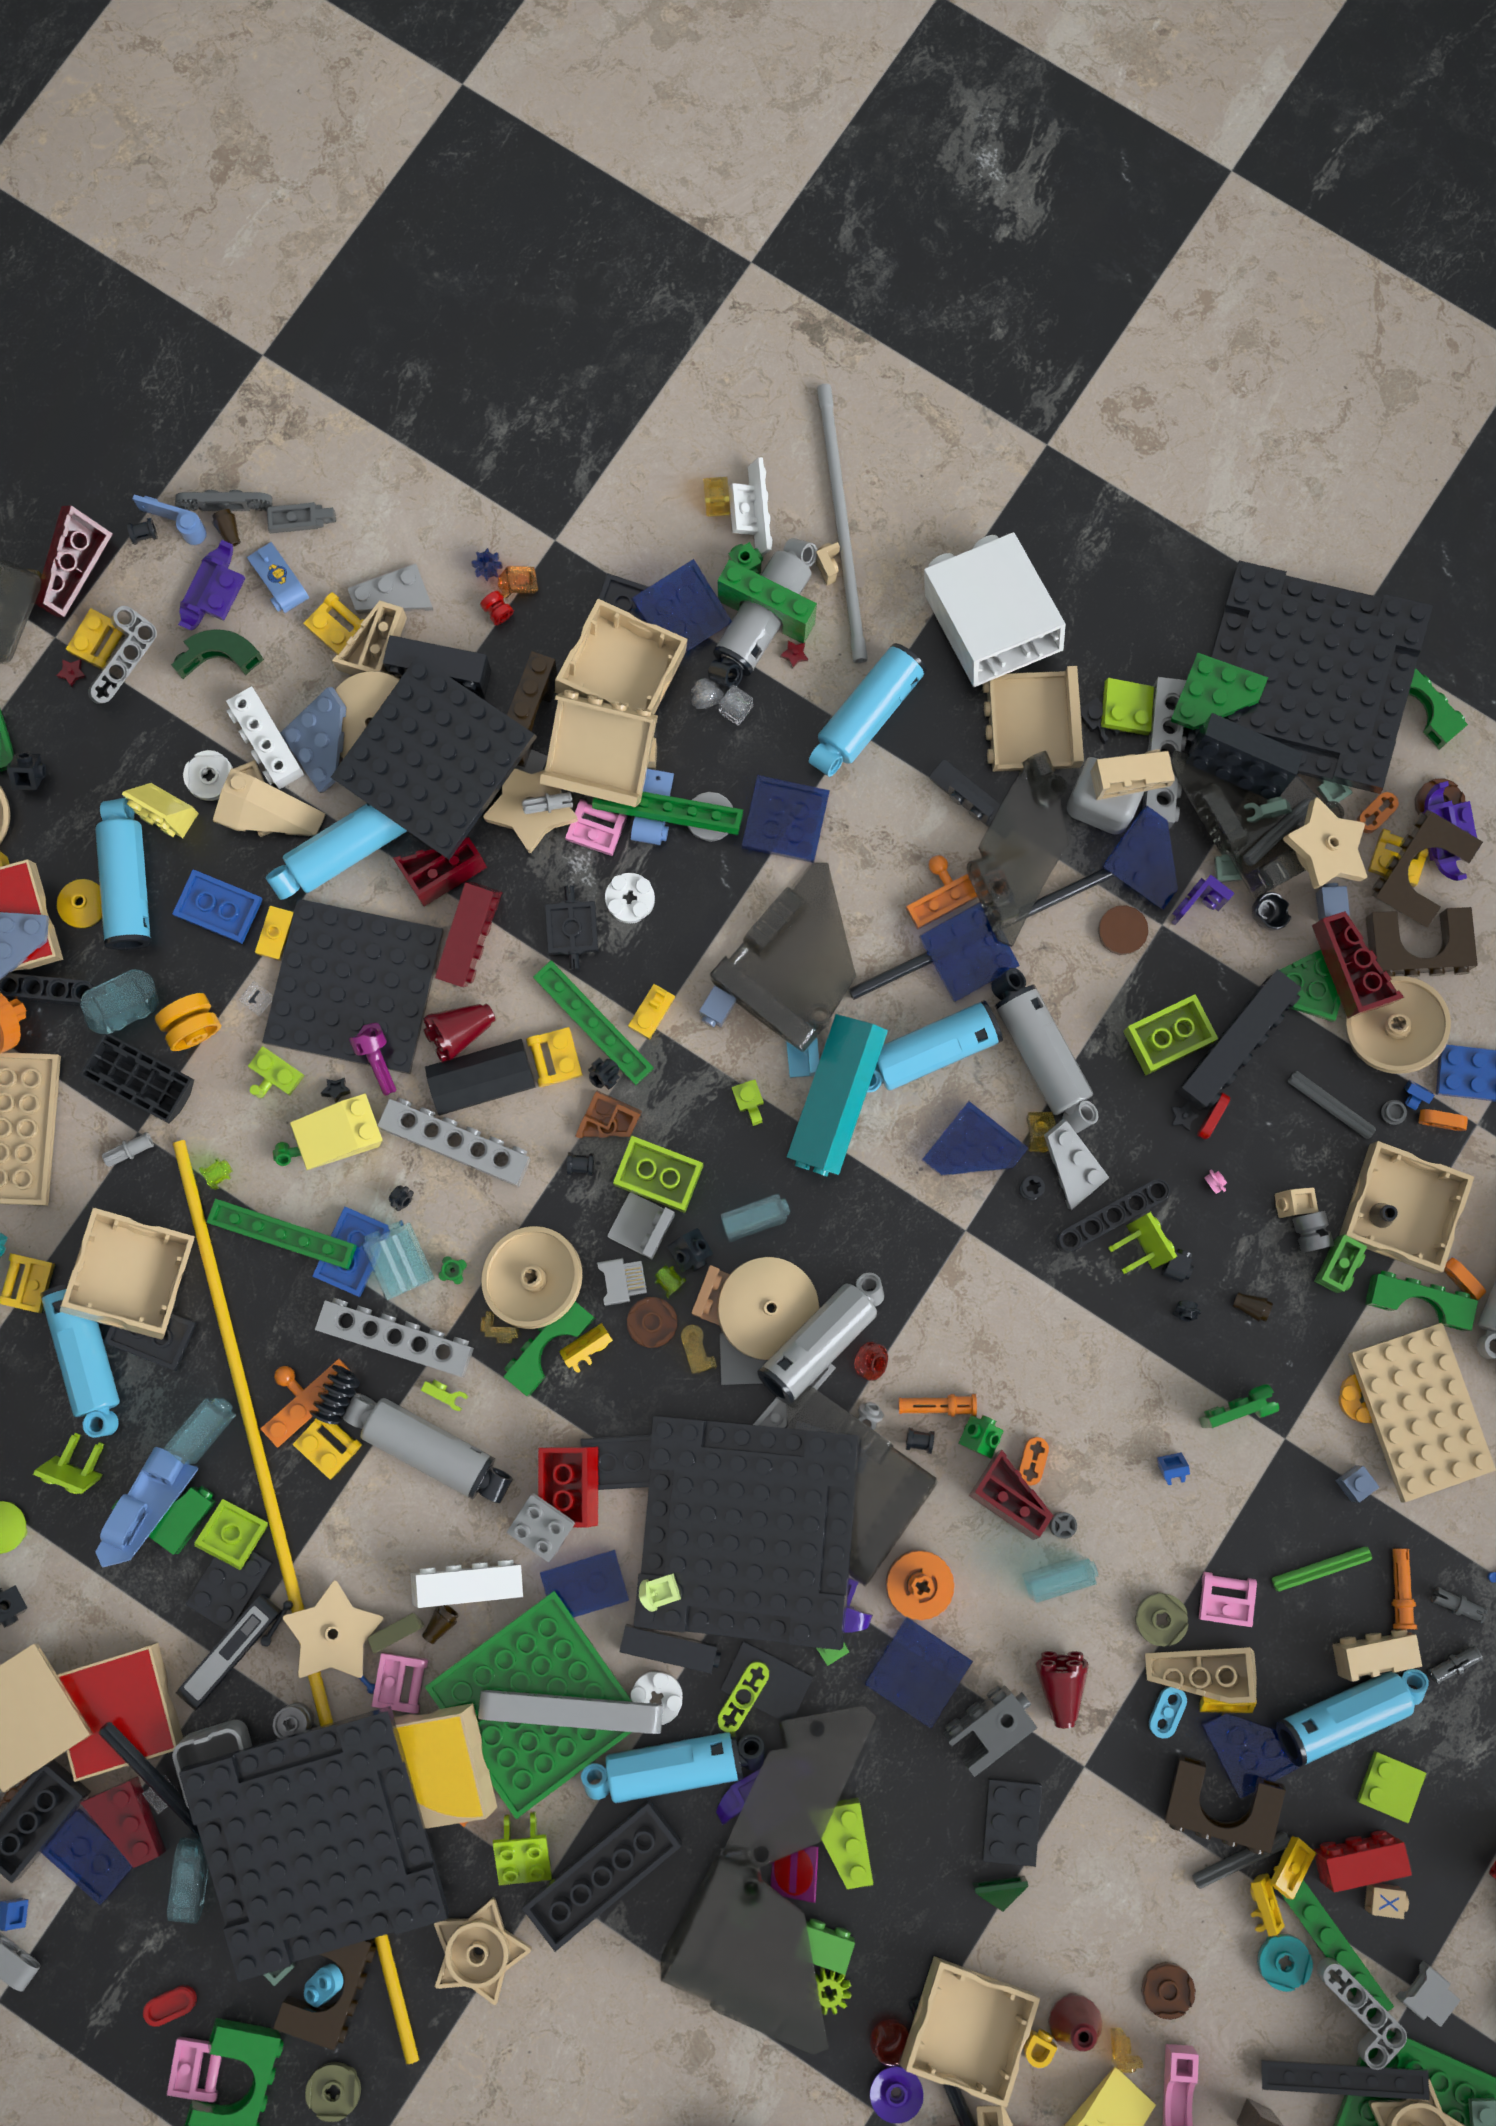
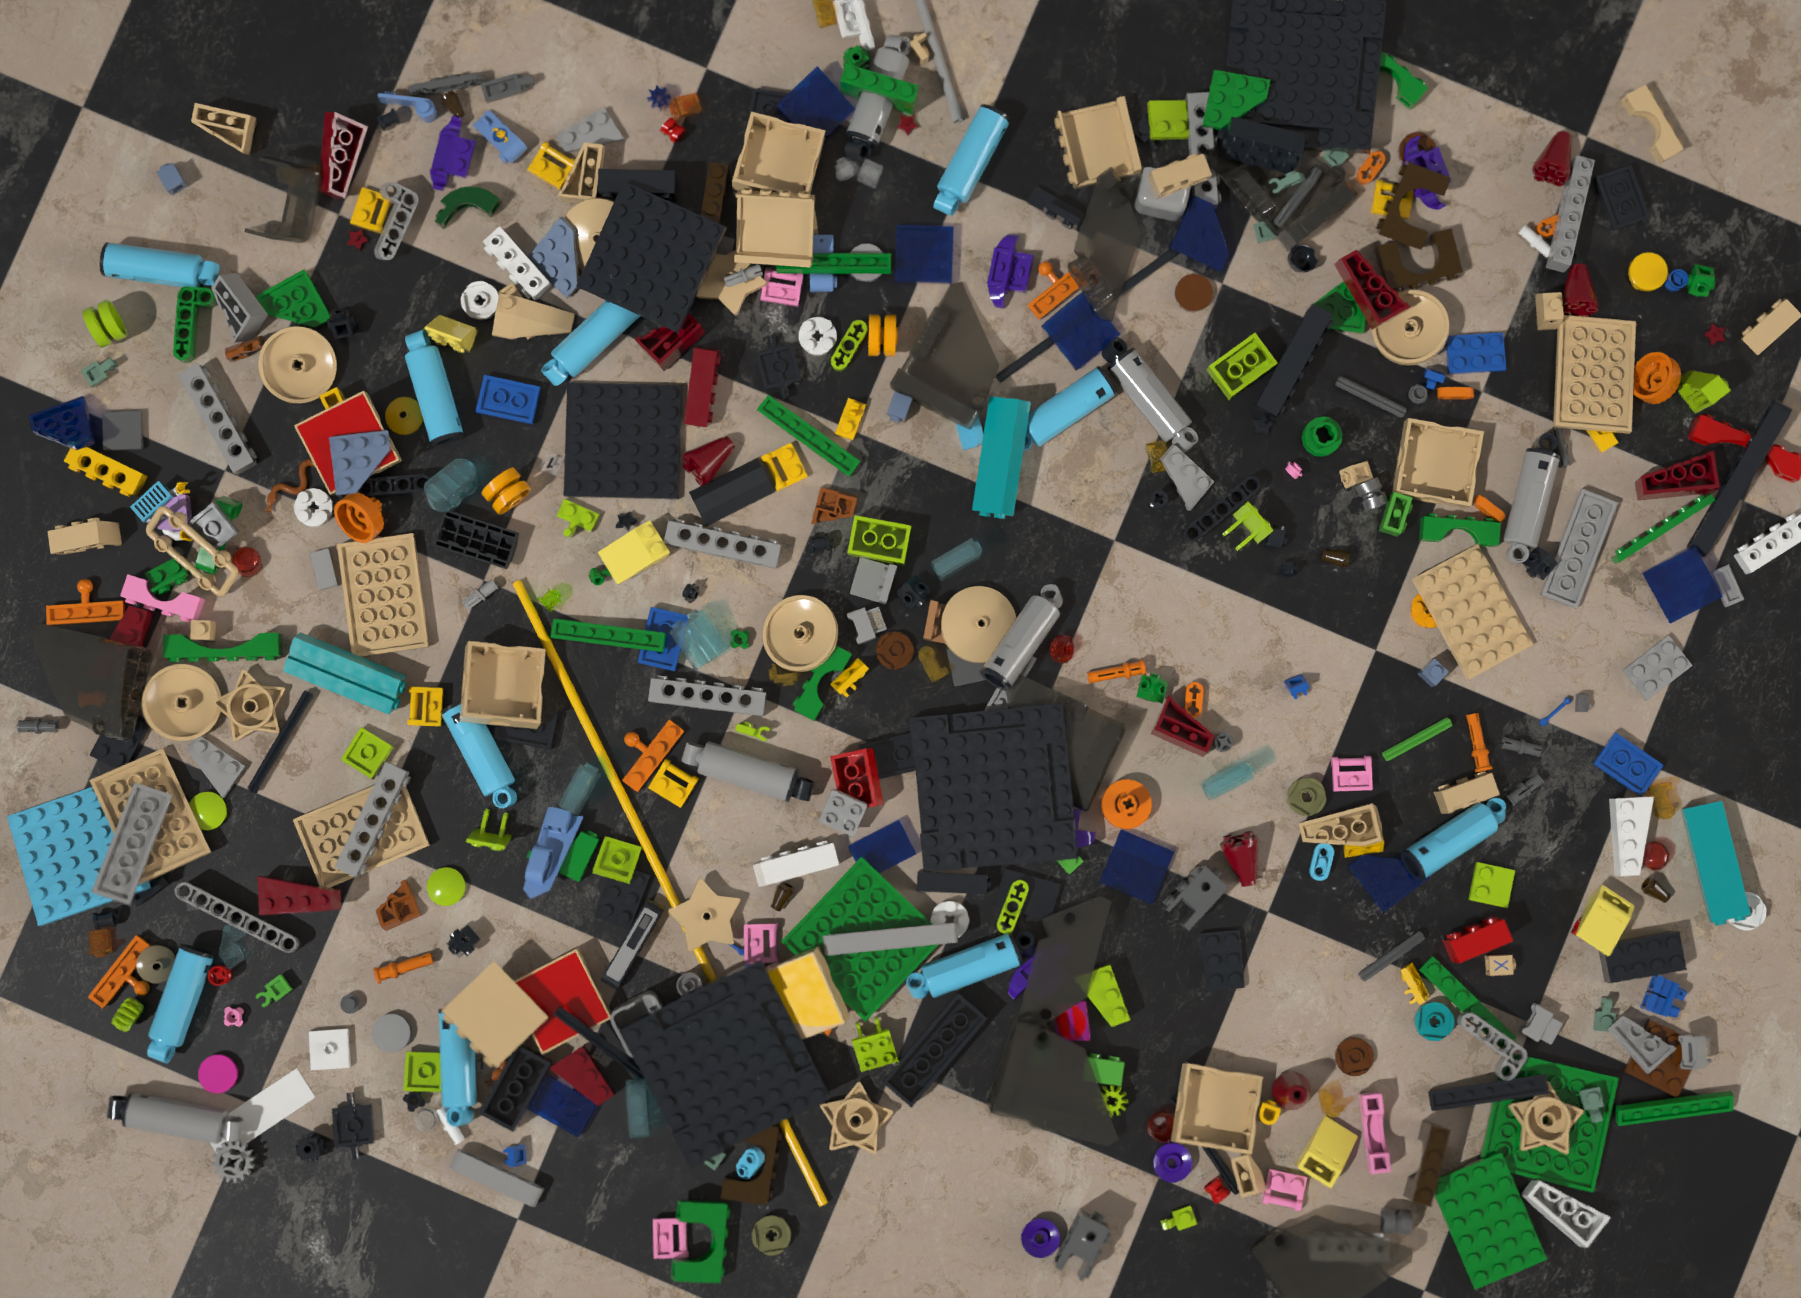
camera: 10 degrees left, 5 degrees up
(169, 2005) = (642, 1198): red tile -> none
(266, 1639) = (657, 931): black hinge -> none
(274, 933) = (555, 411): yellow plate -> none
(336, 1397) = (674, 745): black piece -> none
(369, 1044) = (644, 483): magenta piece -> none
(395, 1632) = (751, 907): olive slope -> none
(604, 1073) = (824, 472): black gear -> none
(658, 1592) = (938, 842): yellowish green tile -> none
(669, 1280) = (902, 617): clear neon green brick -> none
(684, 907) = (837, 355): none -> lime beam
(716, 912) = (884, 335): none -> light orange wheel
(748, 1098) = (935, 471): lime plate -> none
(871, 1412) = (1068, 686): light grey plate -> none
(890, 859) = (1008, 270): none -> dark purple plate
(920, 1440) = (1108, 700): black bush -> none
(974, 1145) = (1109, 476): clear blue plate -> none
(993, 608) = (1052, 63): white brick -> none
(1001, 1892) = (1223, 1010): dark green slope -> none
(1212, 892) = (1254, 251): dark purple bracket -> none
(1213, 1116) = (1284, 421): red tile -> none
(1241, 1407) = (1339, 632): green plate -> none
(1252, 1830) = (1396, 932): dark brown arch -> none
(1274, 1141) = (1311, 440): none -> green piece
(1292, 1867) = (1428, 953): yellow plate -> none
(1328, 845) = (1335, 202): tan plate -> none
(1332, 900) = (1347, 242): sand blue brick -> none
(1378, 1216) = (1418, 475): black cone -> none

